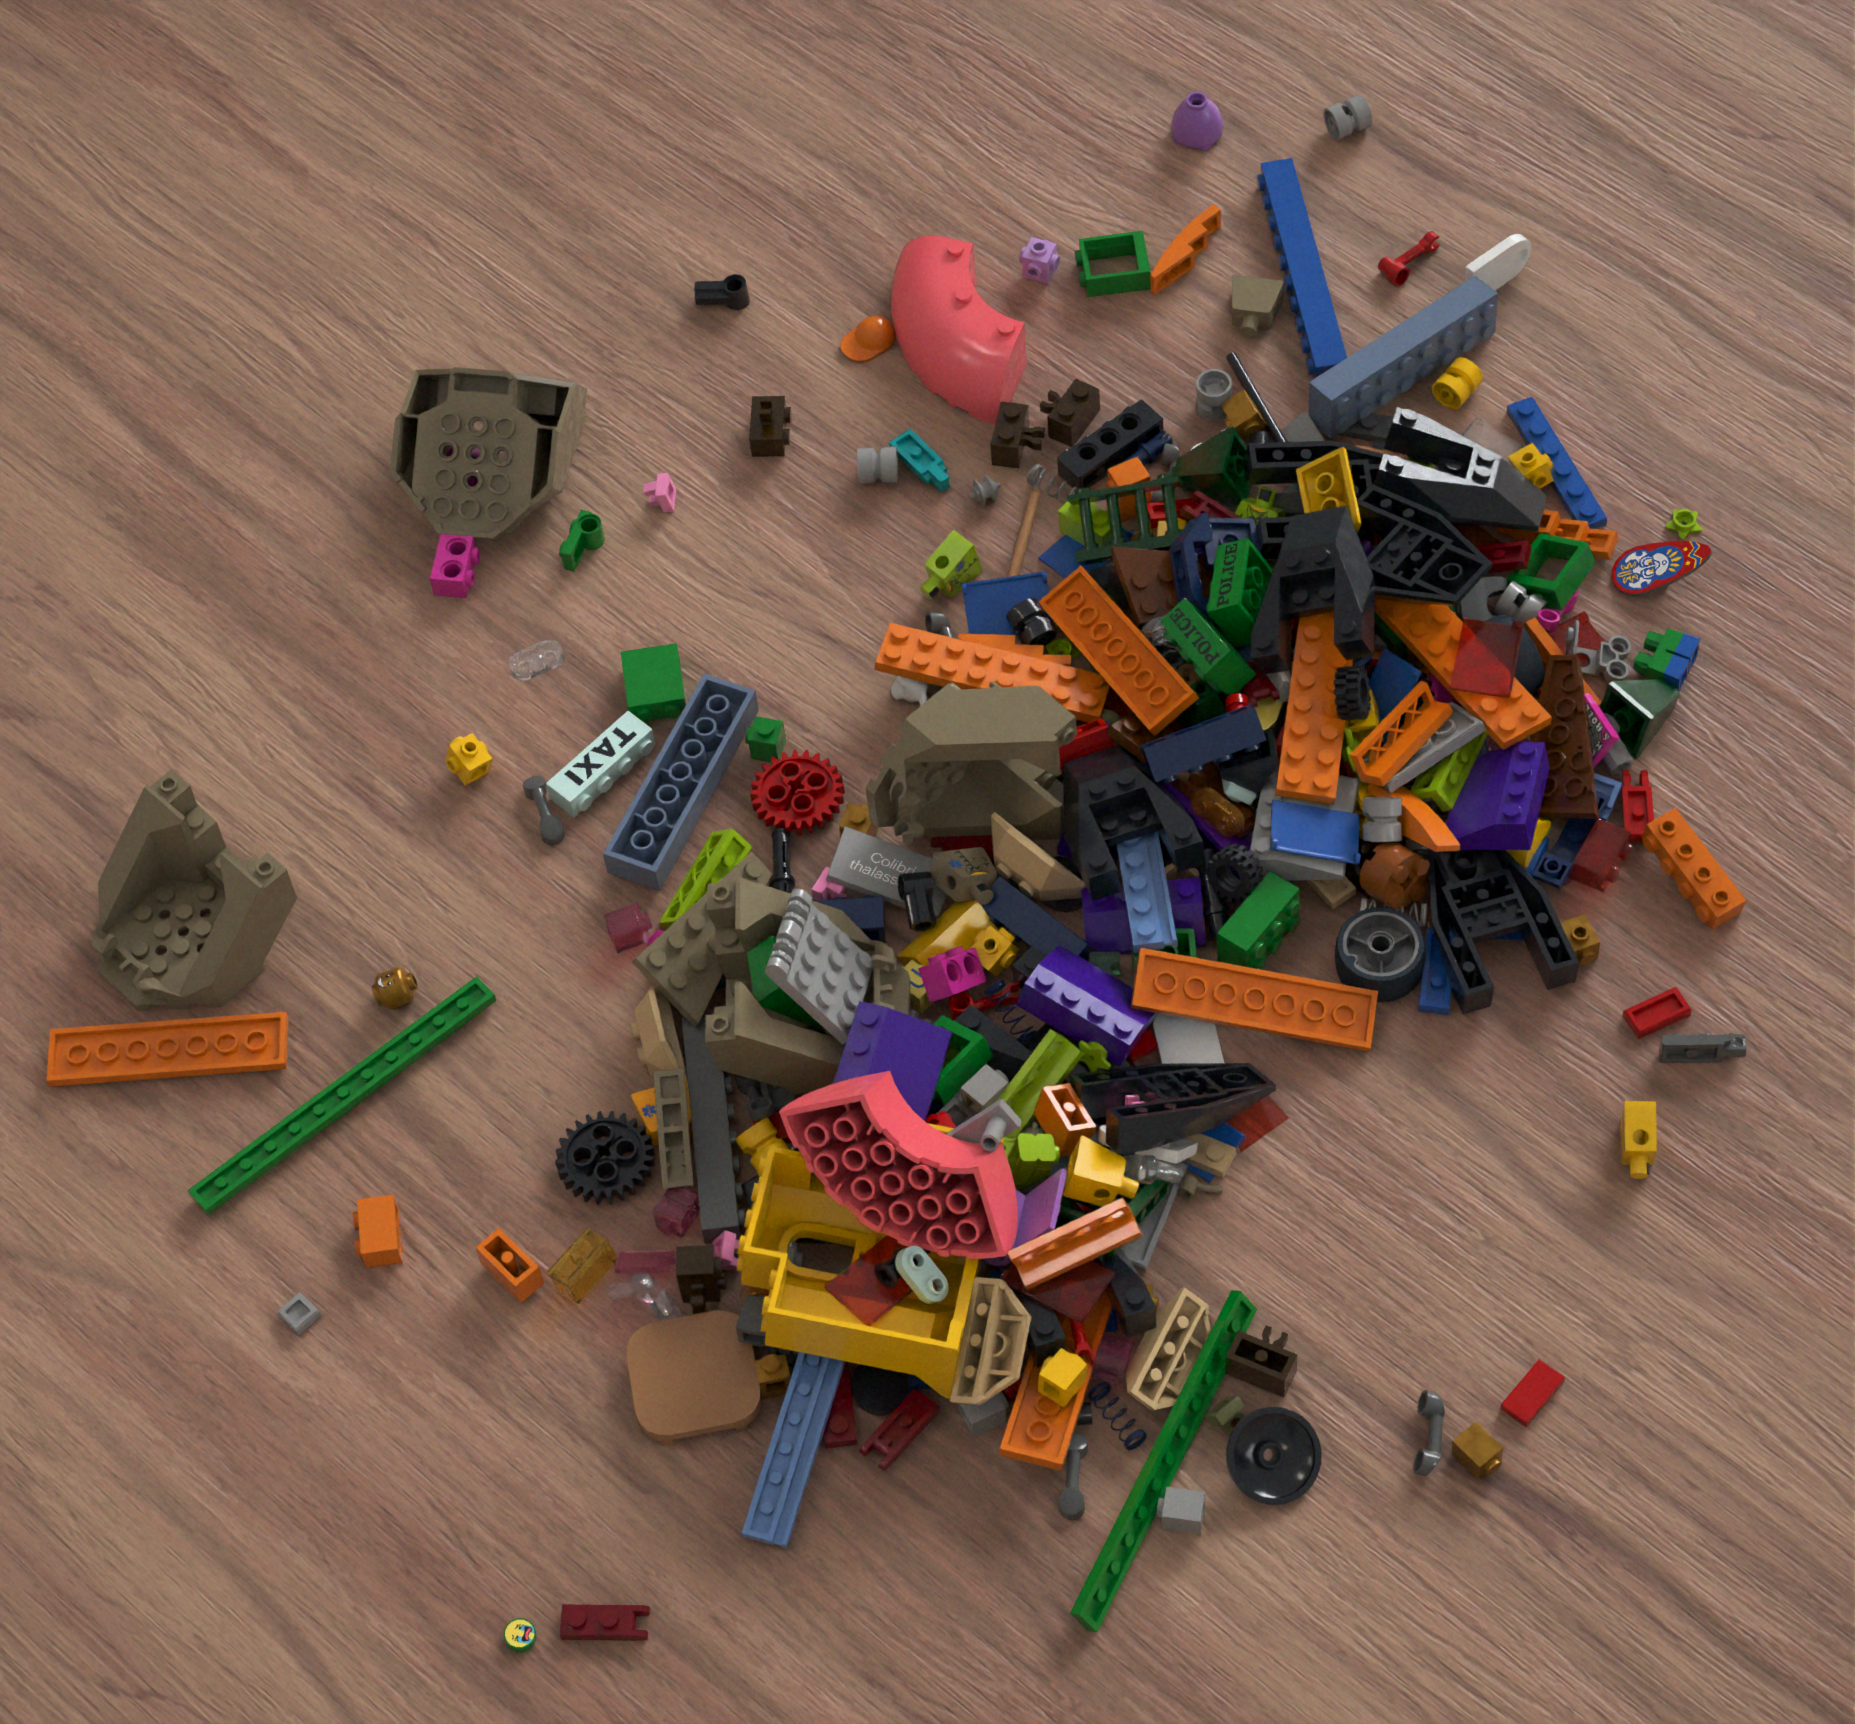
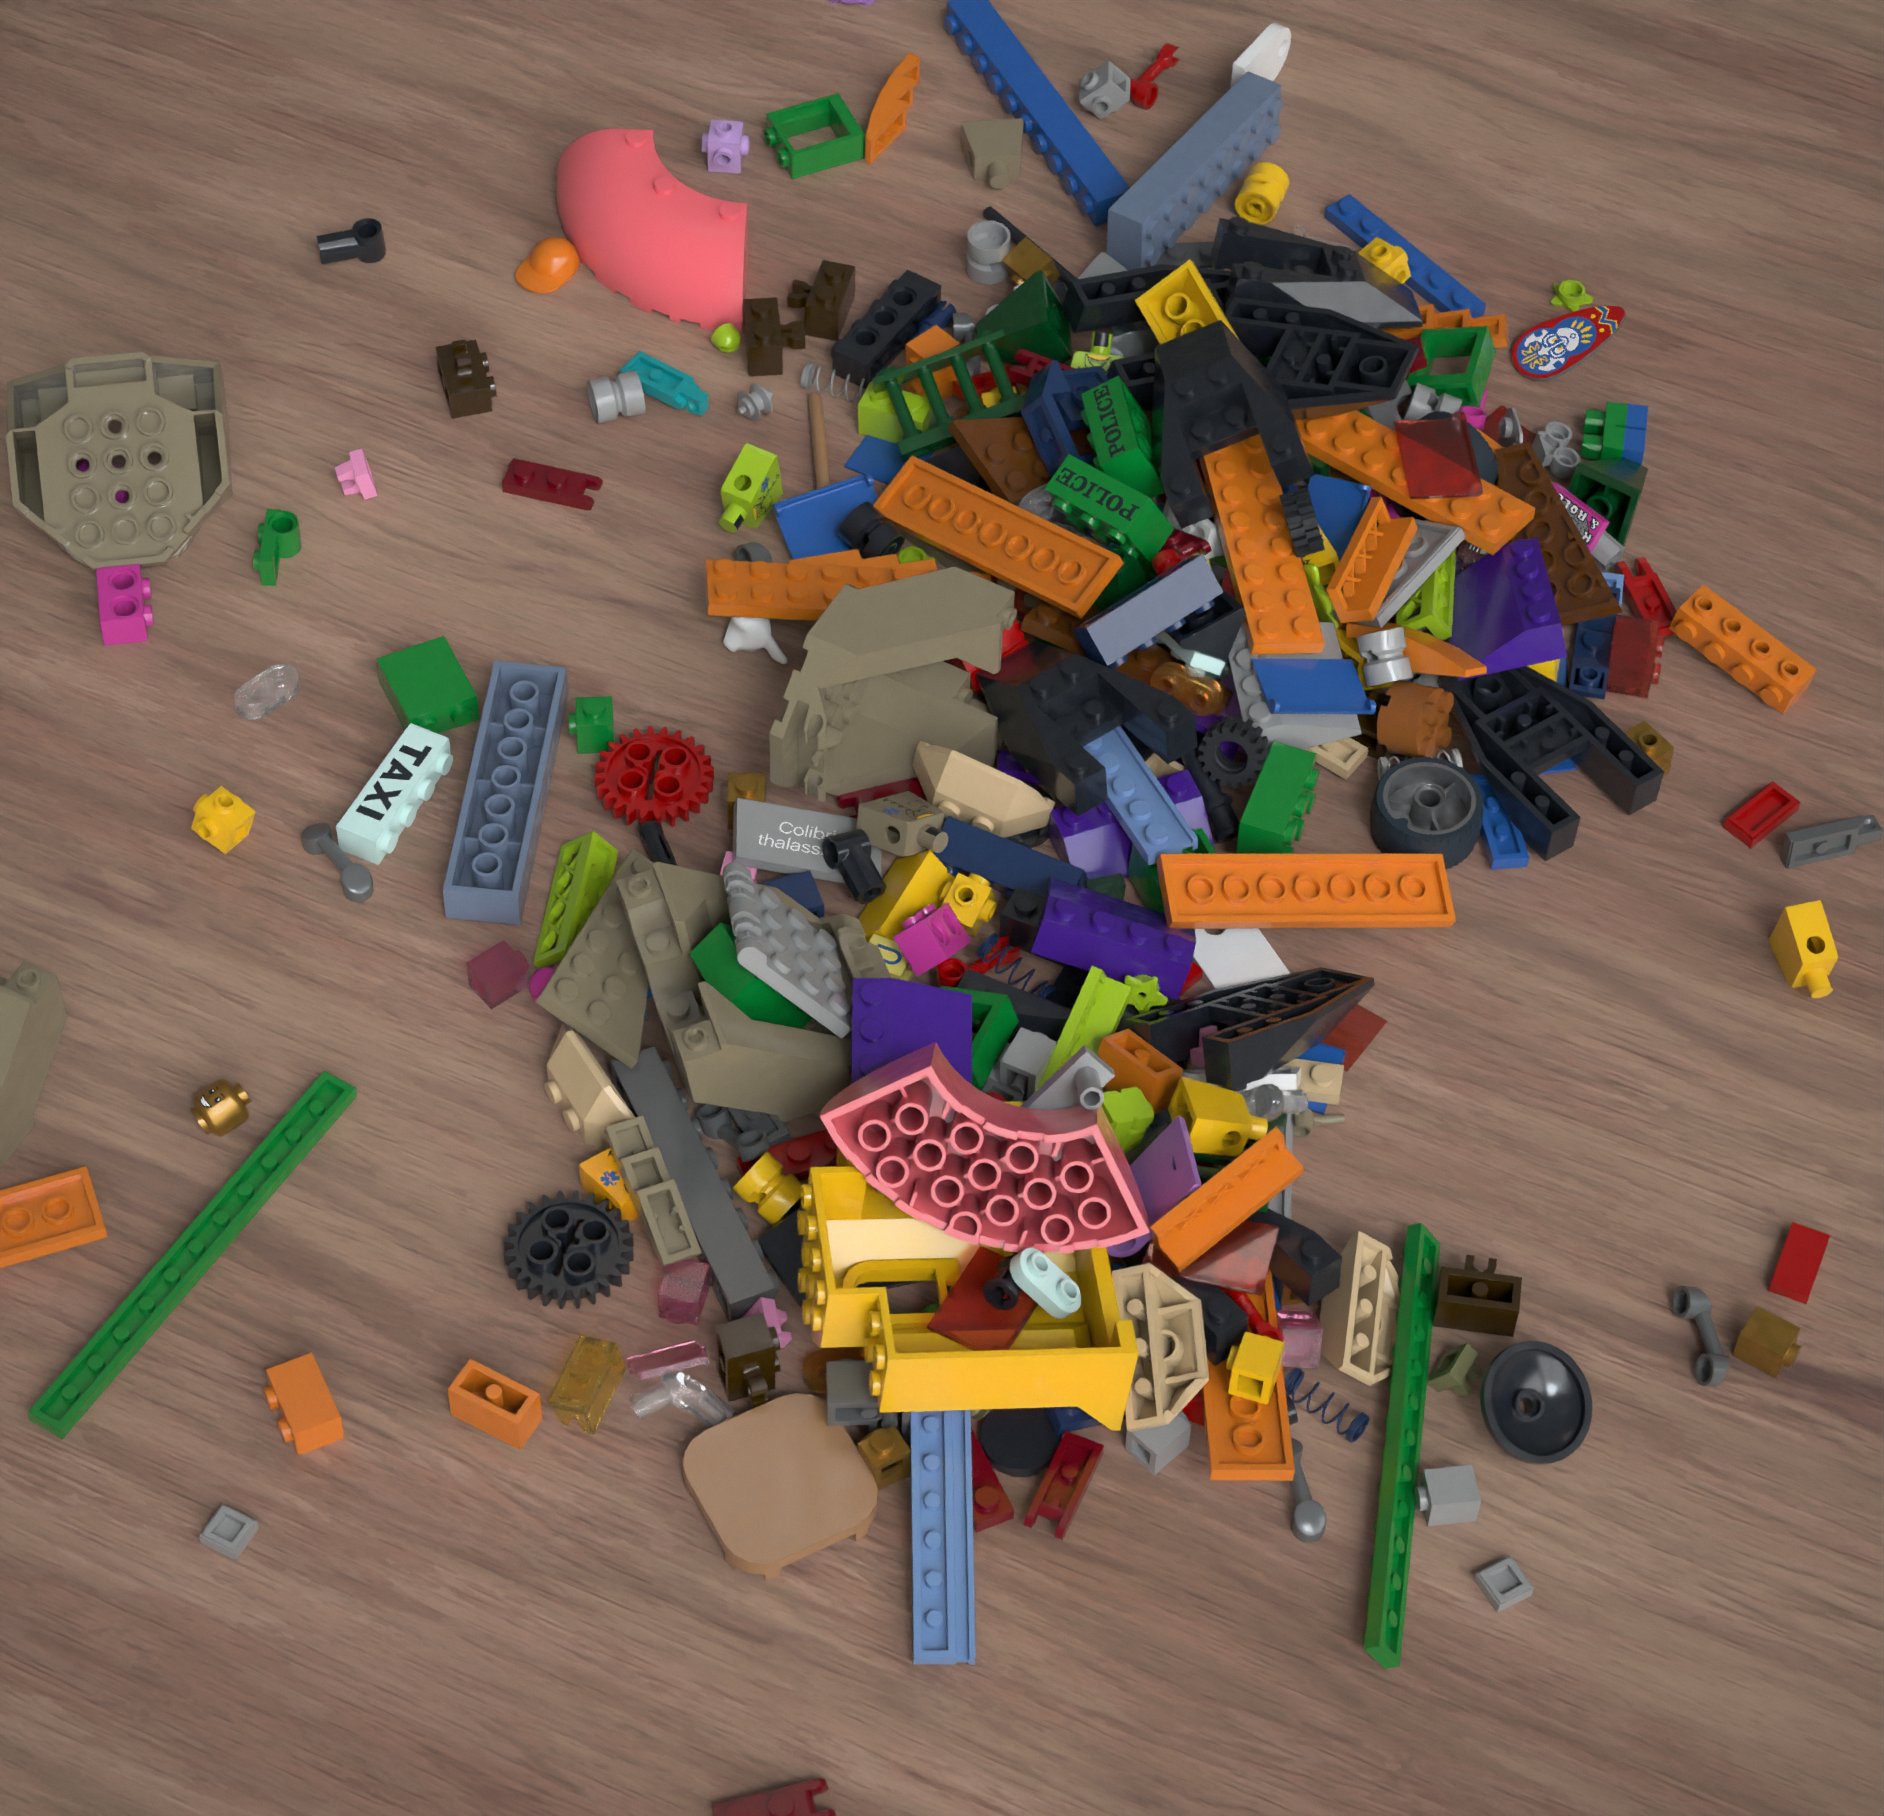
camera: 25 degrees left, 5 degrees down
(805, 528) = (550, 484): none -> dark red hinge
(983, 429) = (726, 338): none -> lime hinge
(1200, 1589) = (1504, 1584): none -> light grey tile
(1361, 265) = (1104, 90): none -> light grey brick

